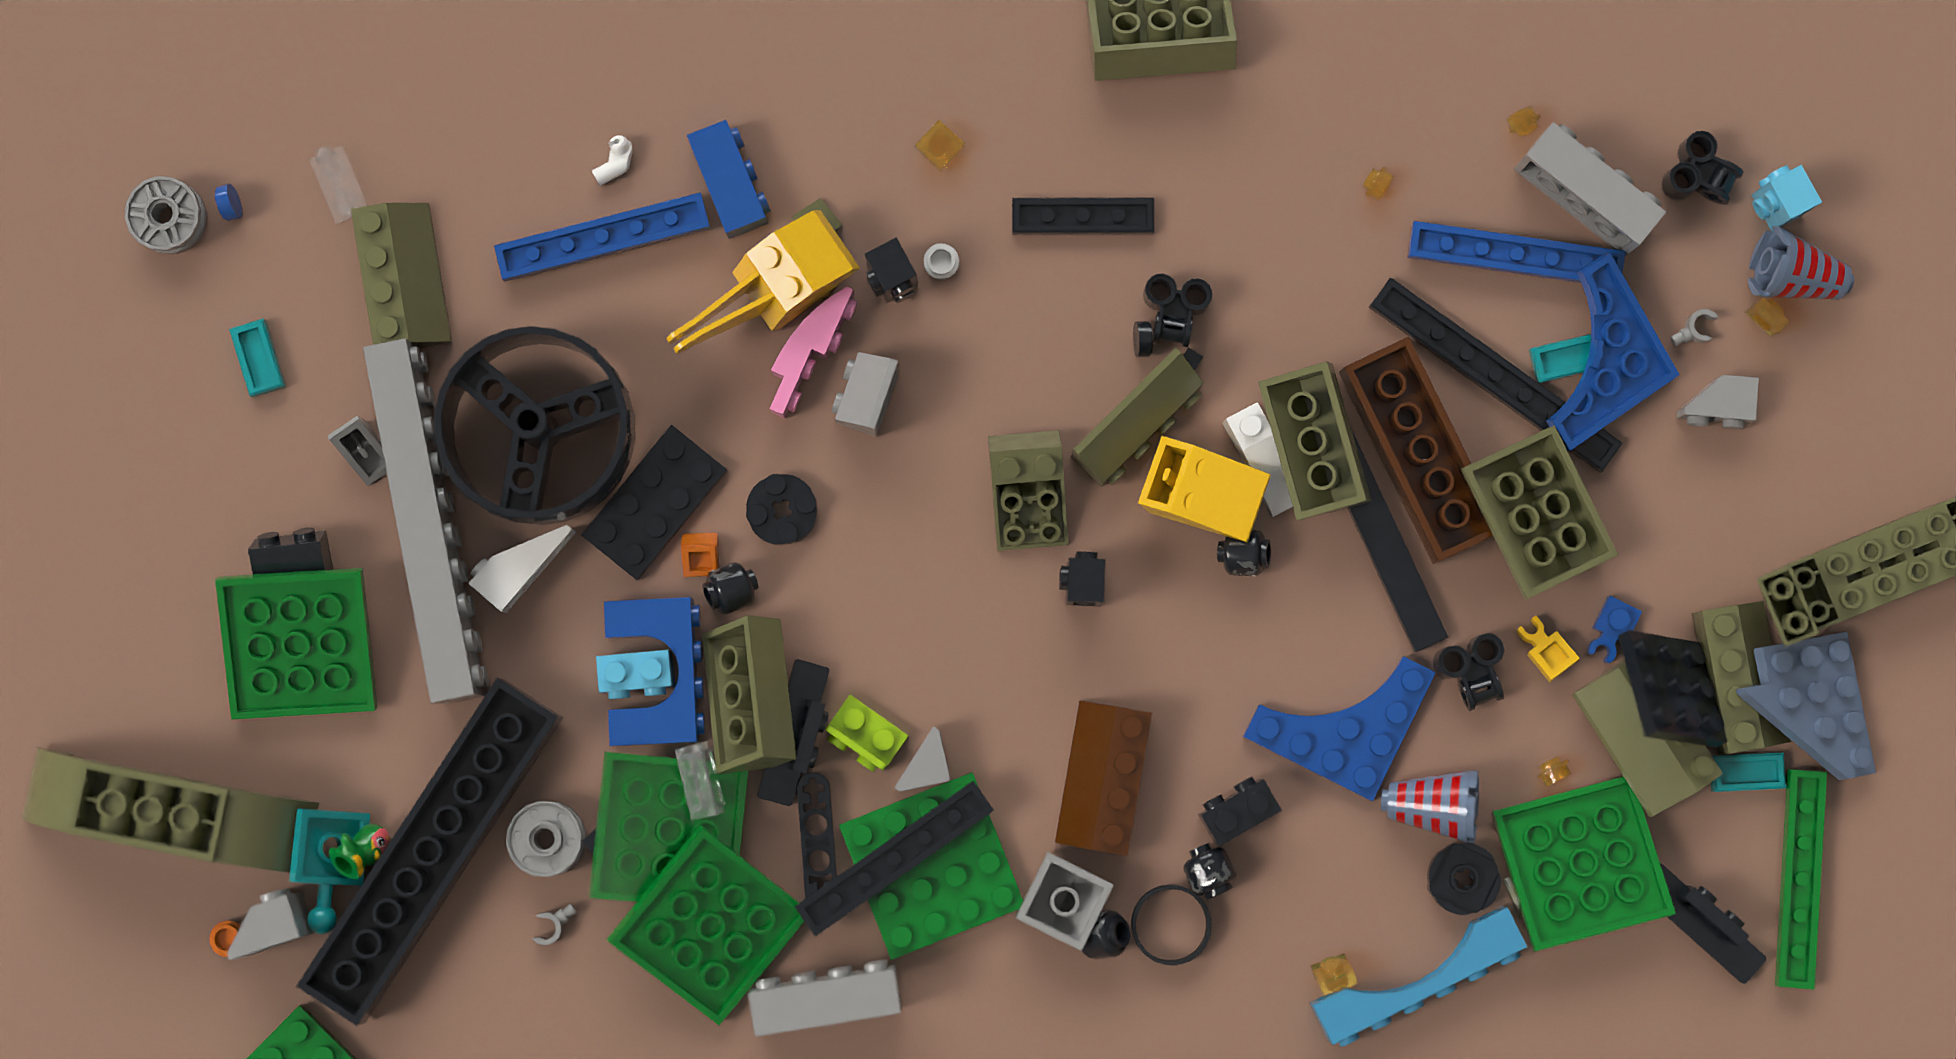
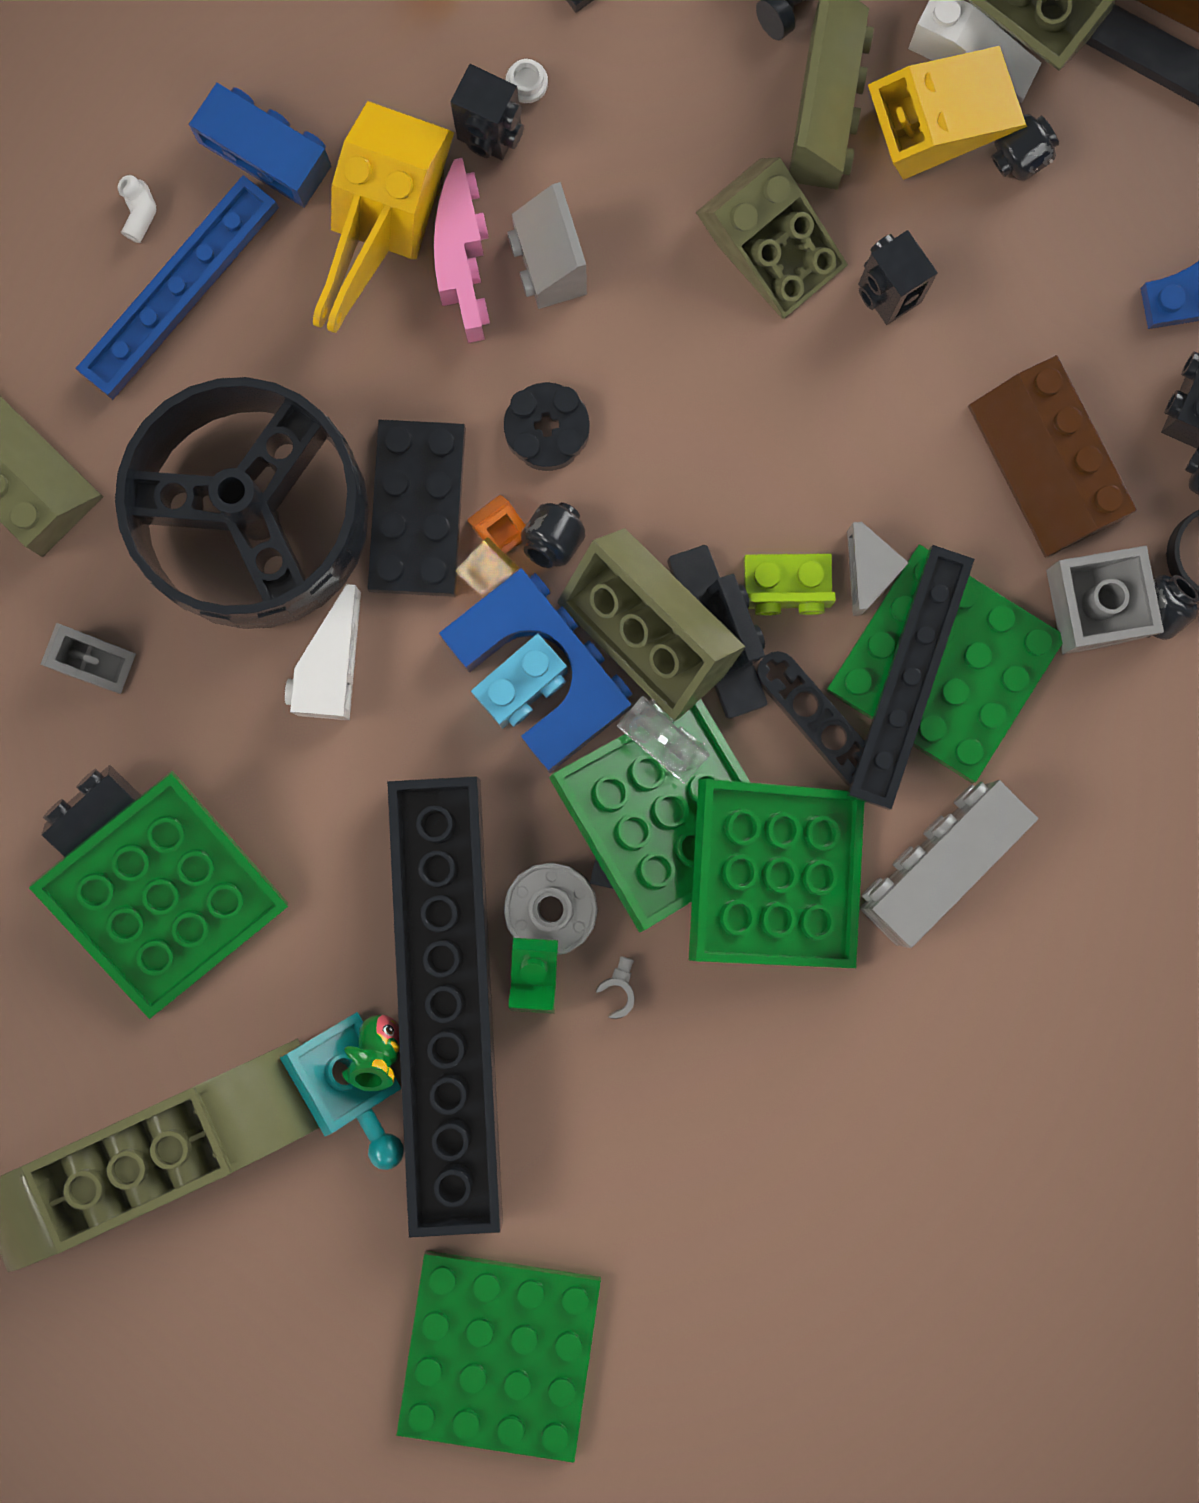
camera: 35 degrees left, 0 degrees up
(223, 936) = (304, 1239): orange plate -> none
(271, 923) = (336, 1193): light grey slope -> none
(425, 522) = (198, 679): light grey brick -> none
(501, 875) = (533, 975): none -> green slope
(669, 579) = (486, 567): none -> clear yellow plate

